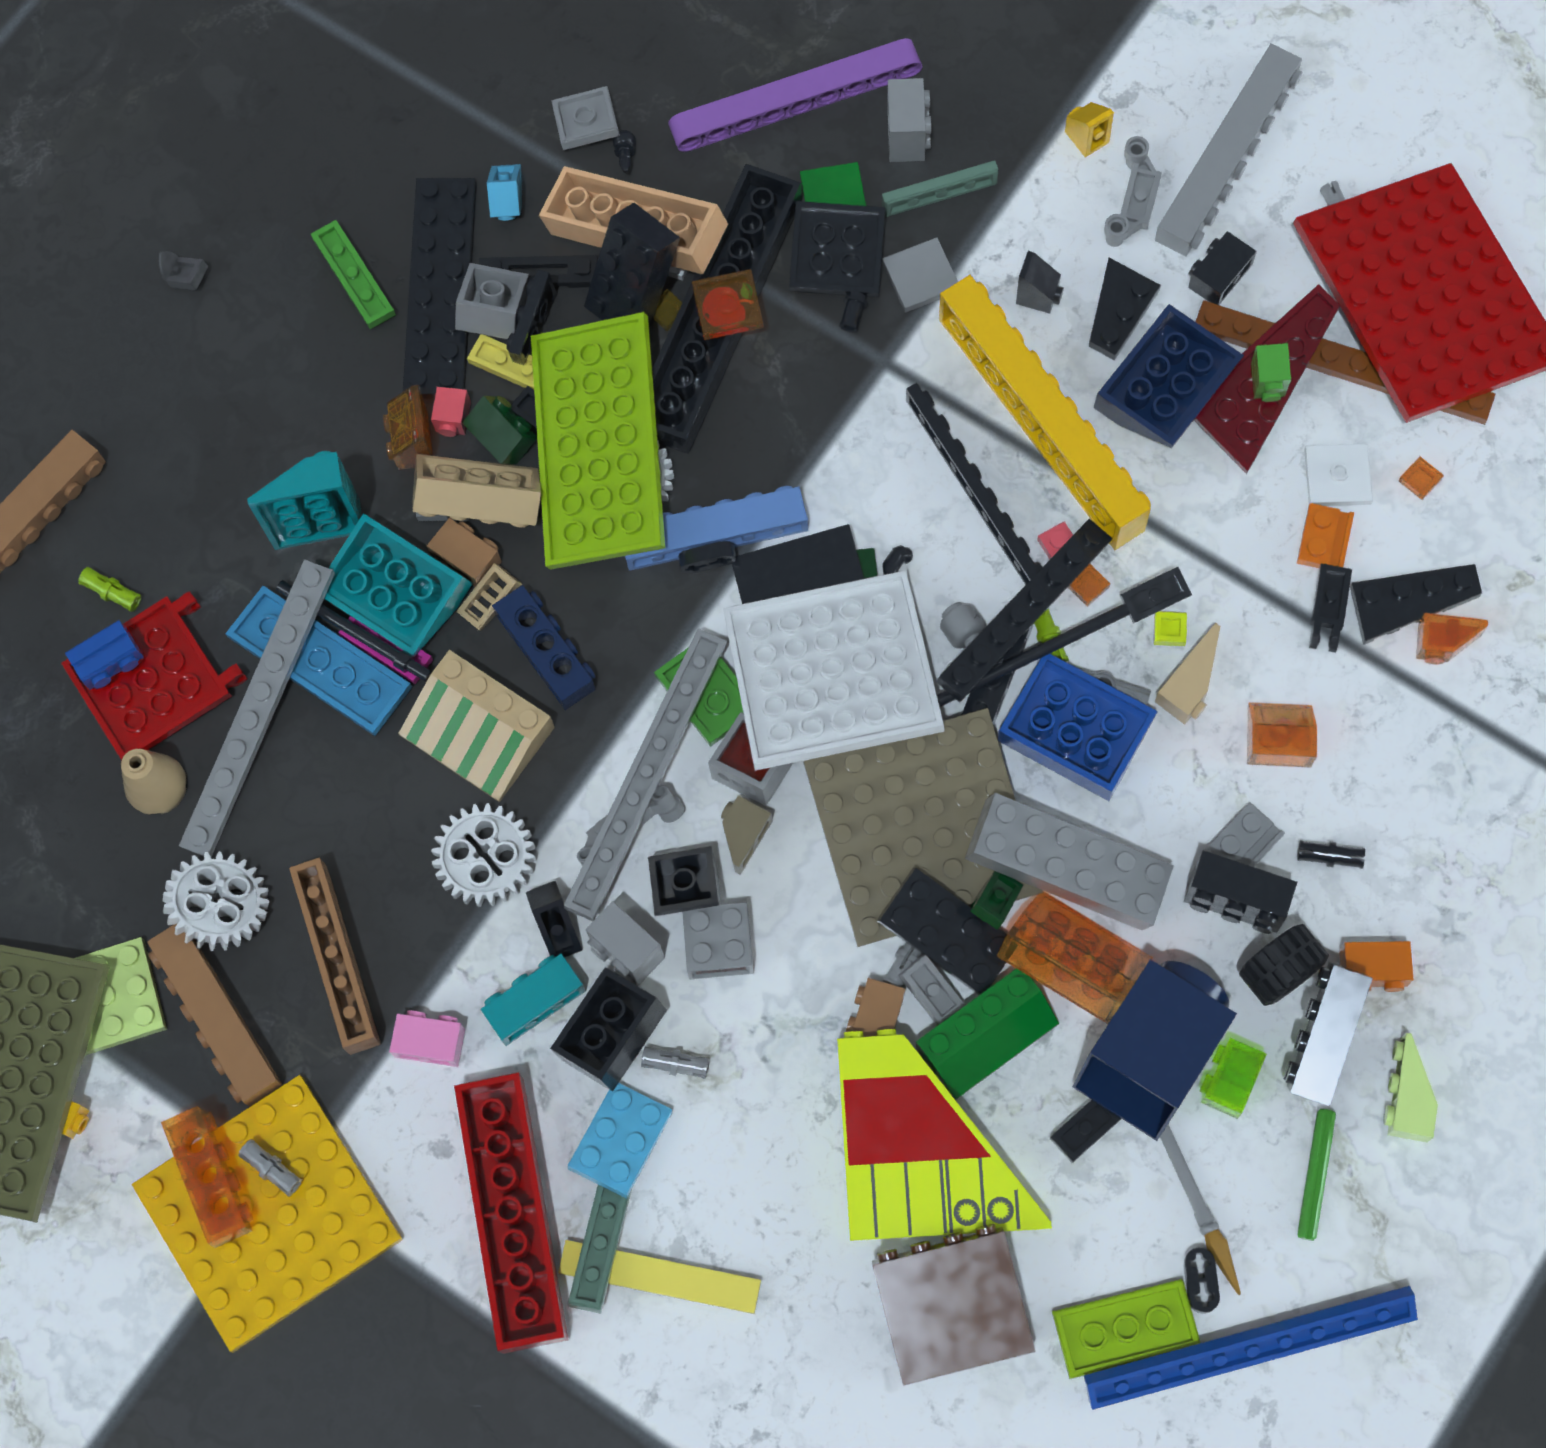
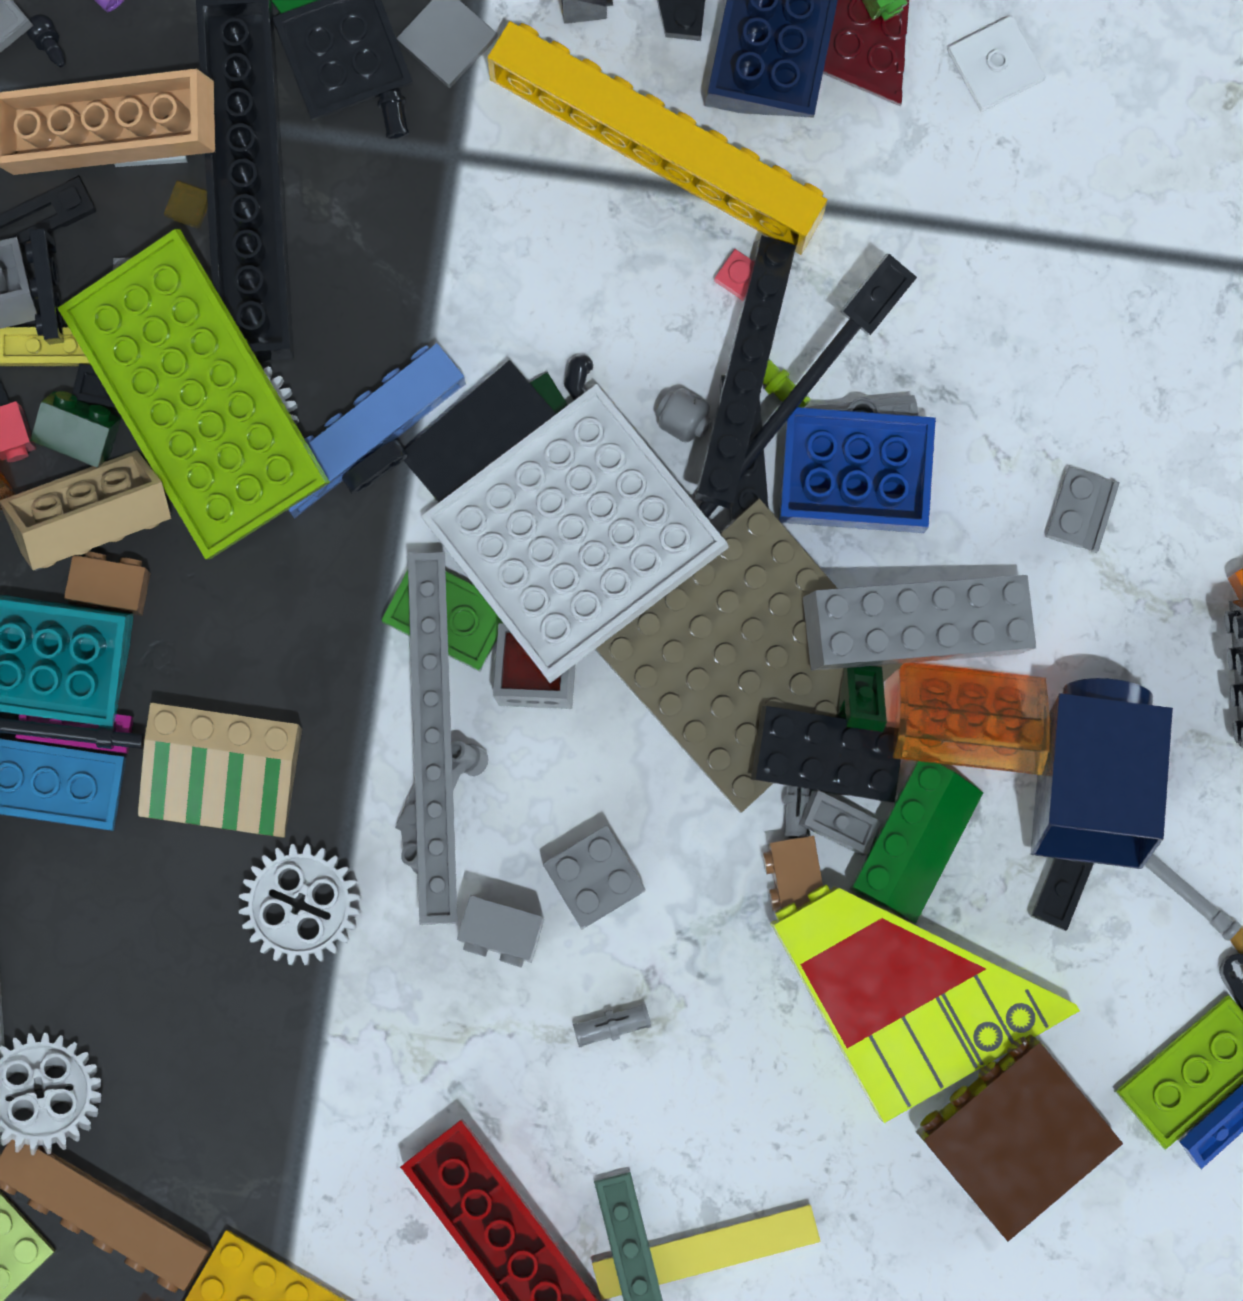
camera: 35 degrees left, 10 degrees up
(335, 956) = (198, 1089): medium nougat brick -> none
(427, 1038) = (341, 1128): bright pink brick -> none
(481, 590) = (175, 608): tan slope -> none
(532, 998) = (429, 1032): teal brick -> none
(553, 920) = (409, 939): black slope -> none
(566, 688) = (193, 628): dark blue brick -> none
(608, 1029) = (529, 1027): black brick -> none
(620, 1140) = (596, 1133): medium azure plate -> none
(631, 265) = (134, 182): black brick -> none
(684, 881) = (531, 835): black slope -> none
(727, 304) = (259, 174): clear orange tile -> none
(744, 829) = (561, 746): dark tan slope -> none
(969, 479) = (611, 247): black plate -> none
(1089, 585) = (795, 307): clear orange tile -> none
(1170, 628) = (903, 318): neon yellow plate -> none
(1188, 686) = (950, 364): tan slope -> none
(1232, 1078) = (1190, 766): clear neon green brick -> none
(1240, 892) = (1106, 571): black brick -> none
(1281, 735) = (1068, 377): clear orange slope -> none
(1283, 964) = (1186, 626): black tyre -> none
(1325, 536) = (1014, 140): orange plate -> none
(1330, 604) = (1053, 212): black hinge -> none
(1331, 854) = (1176, 482): black pin -> none
(1400, 600) = (1126, 171): black wing -> none
(1421, 478) = (1083, 27): clear orange tile -> none
(1446, 636) = (1186, 194): clear orange slope -> none

